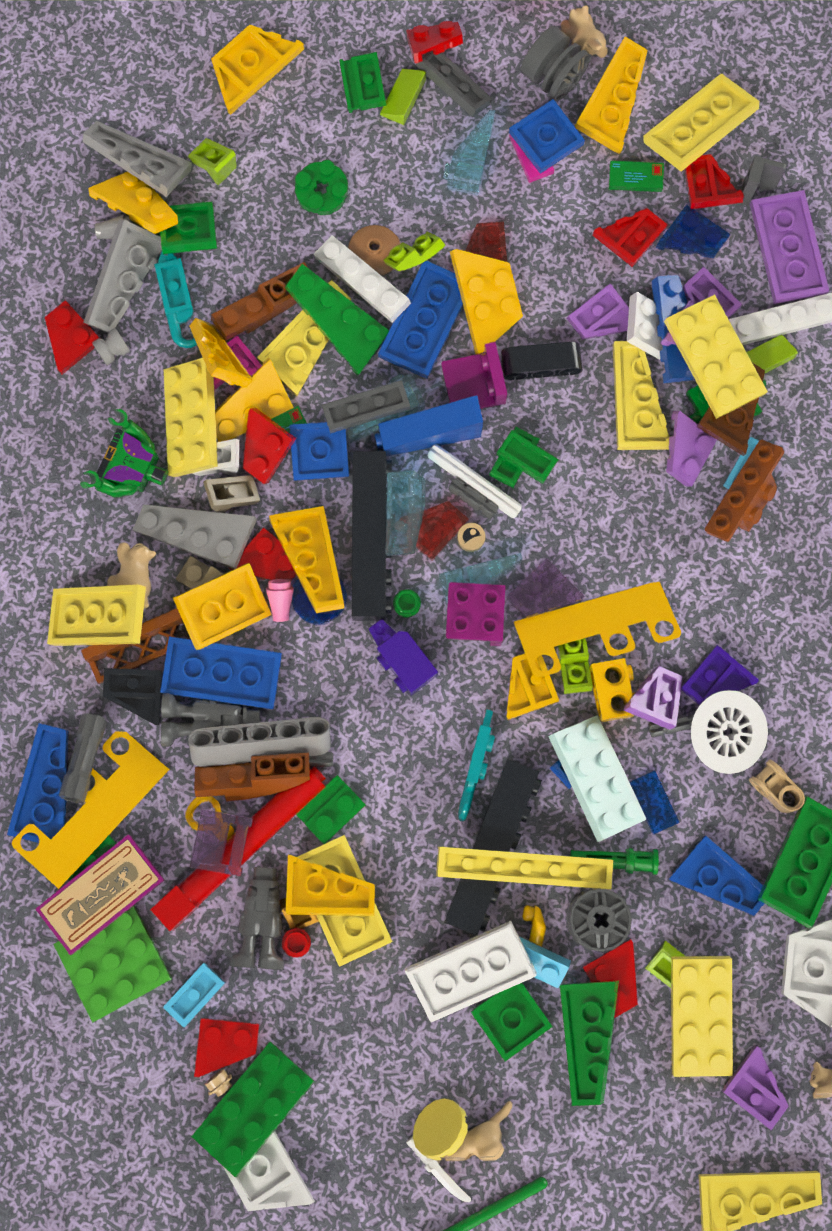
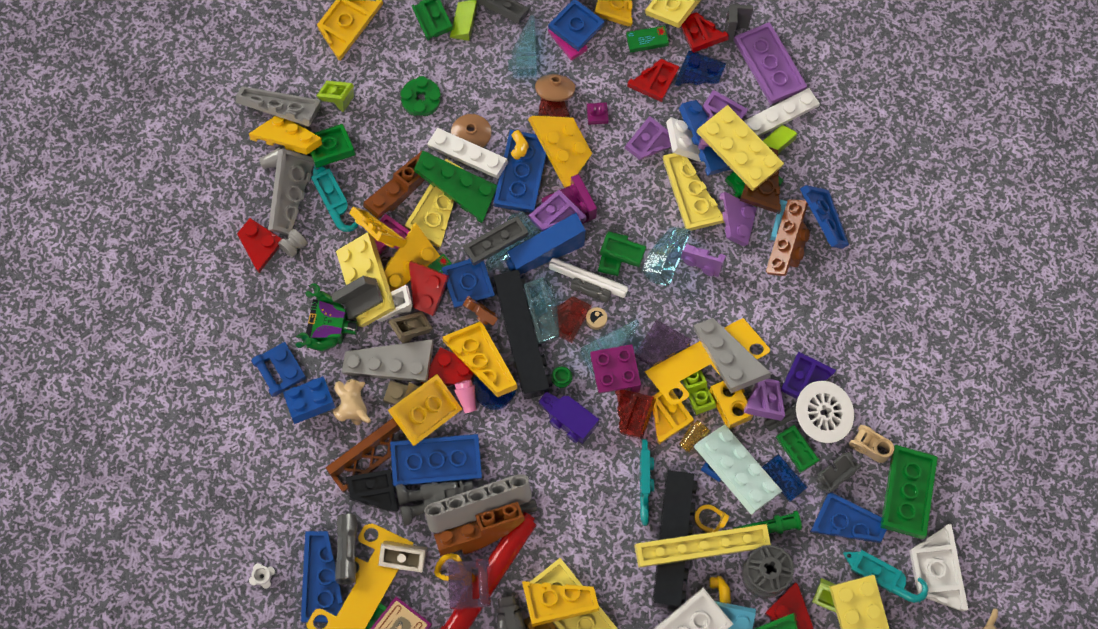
camera: 15 degrees left, 10 degrees down
(65, 504) = (284, 364): none -> blue plate
(82, 557) = (309, 400): none -> blue plate
(96, 615) = (331, 438): light yellow plate -> none
(151, 784) = (402, 556): none -> dark tan slope
(175, 438) = (359, 296): none -> dark grey panel
(328, 497) = (484, 314): none -> dark orange plate
(331, 809) = (544, 542): green plate -> none
(406, 256) = (496, 130): lime slope -> none
(432, 286) = (521, 145): none -> yellow arm
(453, 384) = (553, 211): none -> medium lavender wing
(485, 673) = (634, 412): none -> clear red wing
(497, 215) = (555, 87): none -> medium nougat dish
(540, 360) = (614, 180): black beam -> none
(544, 263) = (597, 113): none -> magenta tile
(553, 720) = (695, 433): none -> clear yellow cone
(558, 843) = (724, 518): none -> yellow piece
(581, 476) = (665, 256): none -> clear light blue slope
(618, 487) = (700, 257): none -> medium lavender wing
(627, 635) = (730, 358): none -> light grey wing
(681, 770) = (797, 448): none -> green plate
(713, 820) = (830, 479): none -> dark grey hinge
(746, 960) = (885, 575): none -> teal plate
(804, 471) = (826, 215): none -> blue wing

